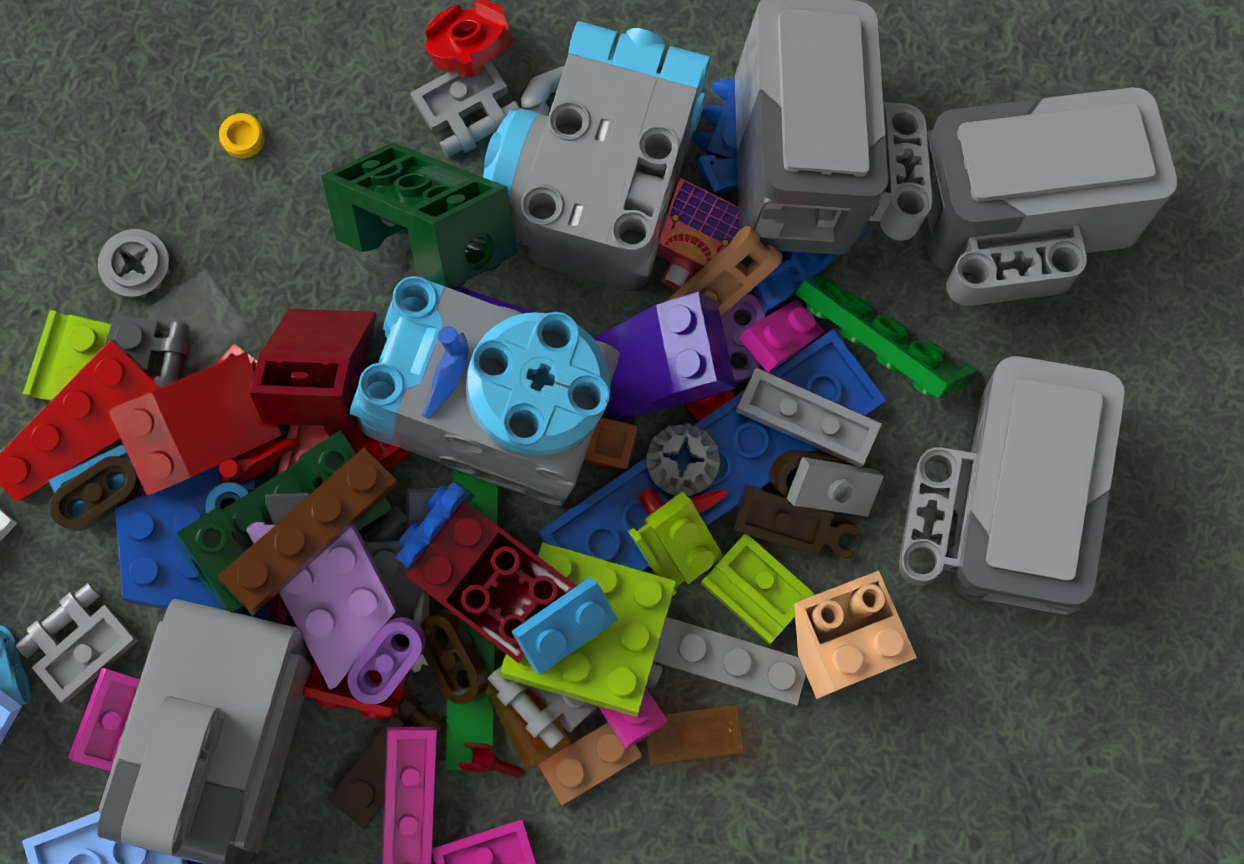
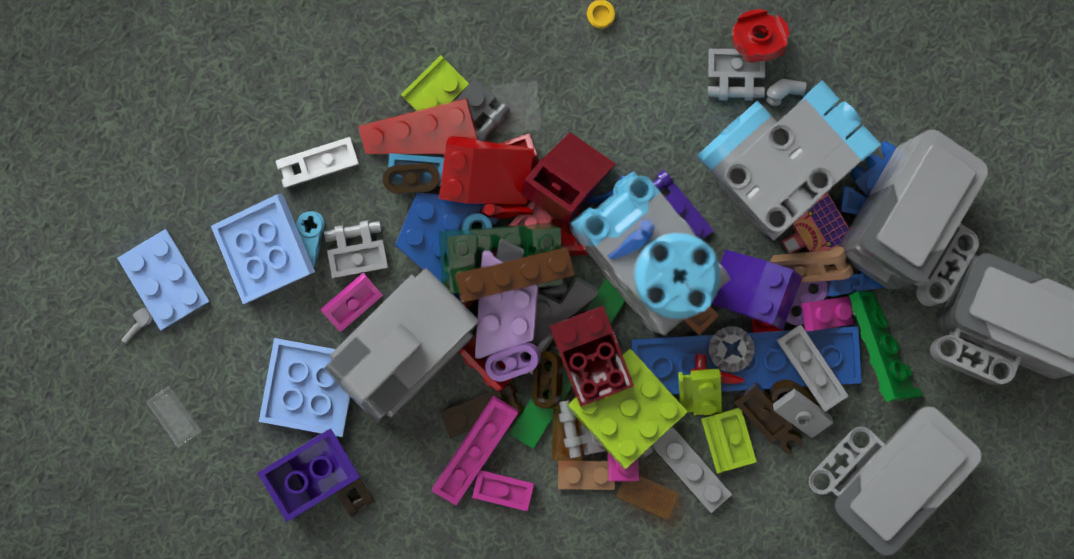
camera: 35 degrees right, 10 degrees up
(134, 243) = (507, 44): light grey gear -> none
(442, 507) = (568, 310): blue plate -> none
(452, 216) = (687, 148): dark green plate -> none
(485, 760) = (532, 442): dark red hand -> none
(564, 625) = (615, 402): dark azure plate -> none
(850, 634) = (760, 495): light nougat slope -> none

